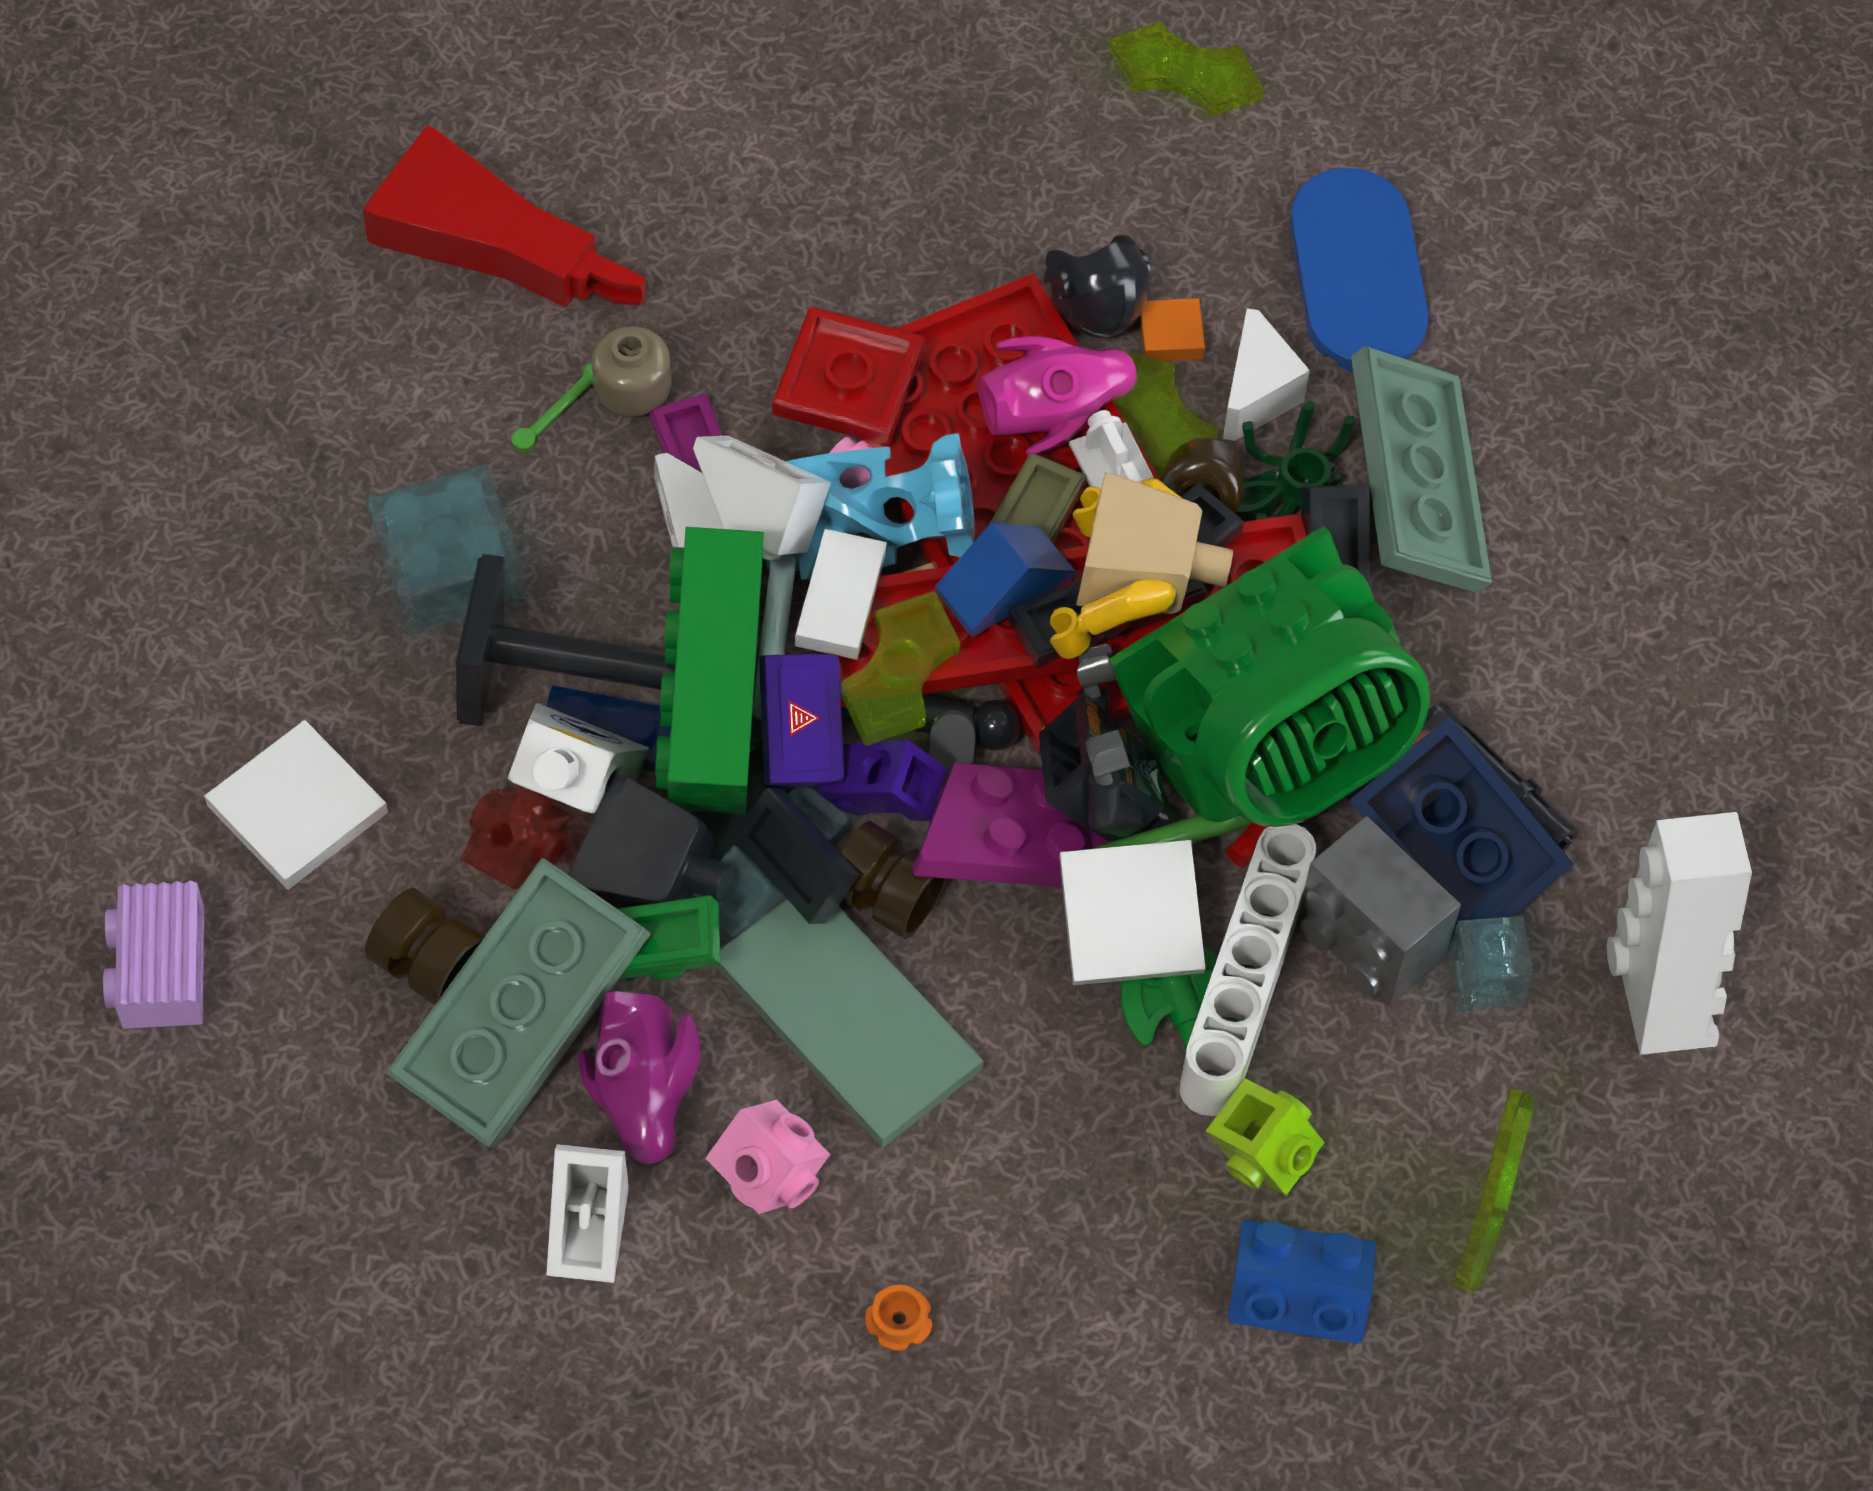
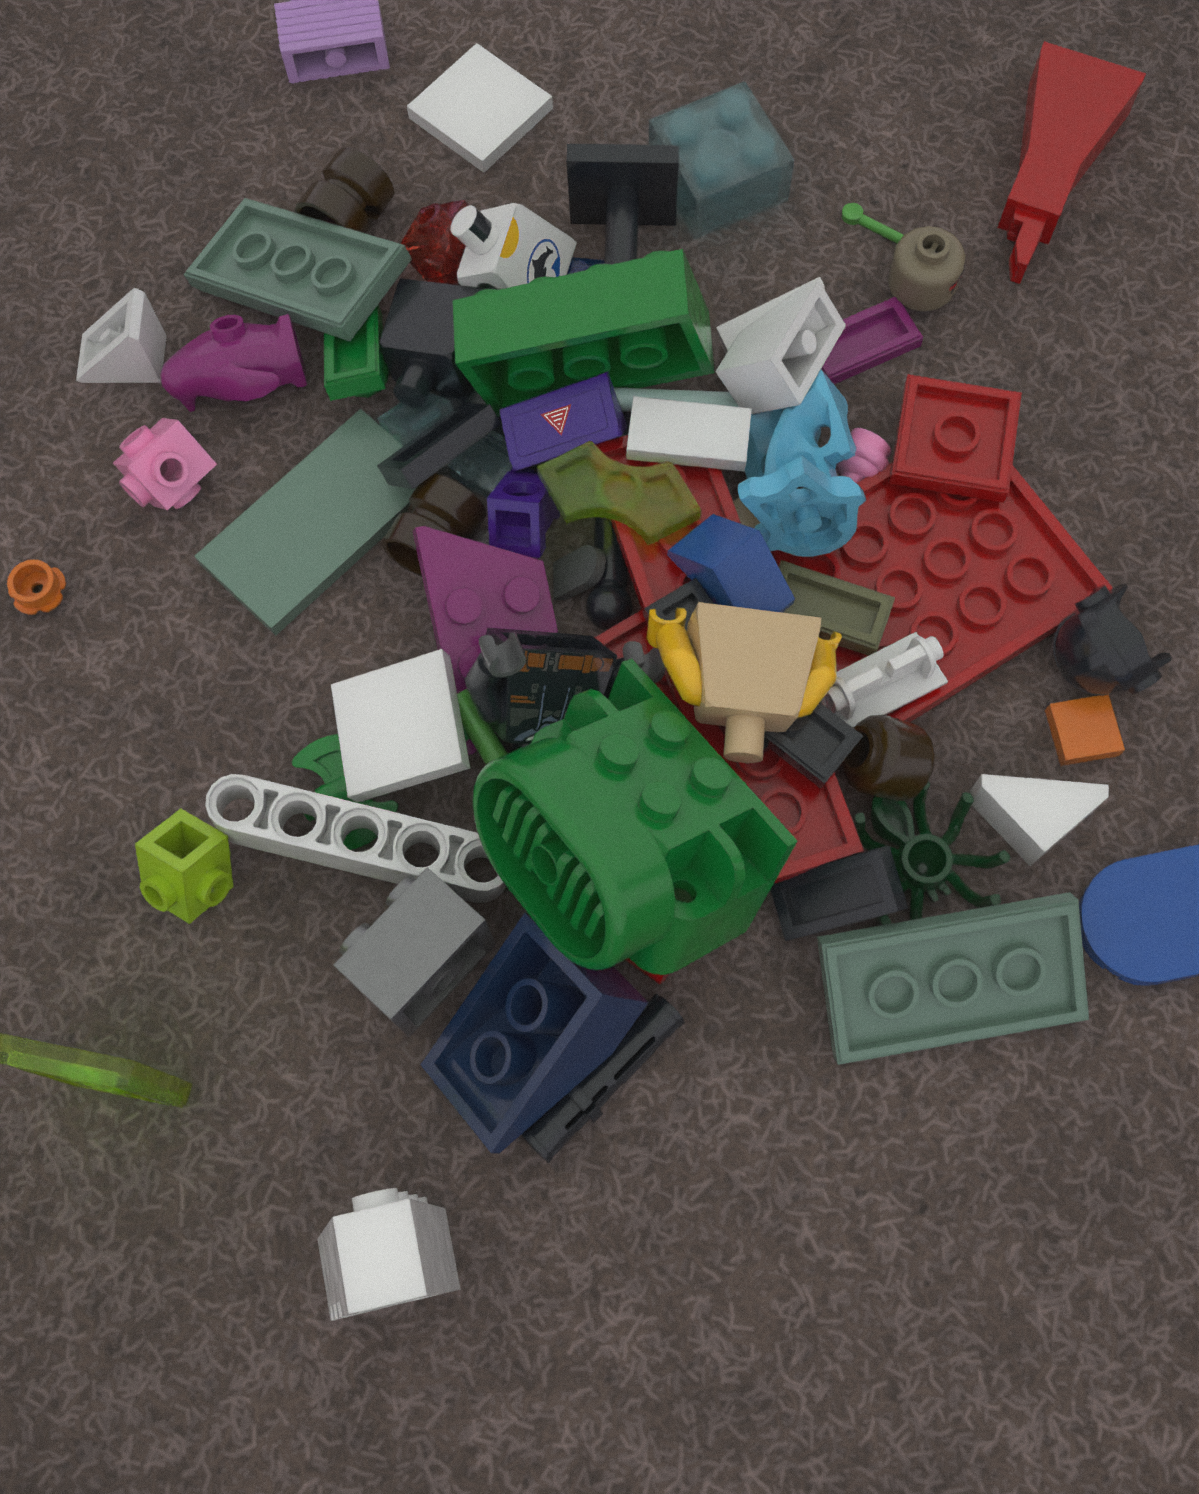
camera: 90 degrees right, 10 degrees up
(1052, 388) = (964, 602): dark pink animal -> none
(1158, 412) = (1001, 711): clear neon green tile -> none
(1302, 1281) = (67, 916): blue bracket -> none
(1491, 963) = (383, 1074): clear light blue brick -> none

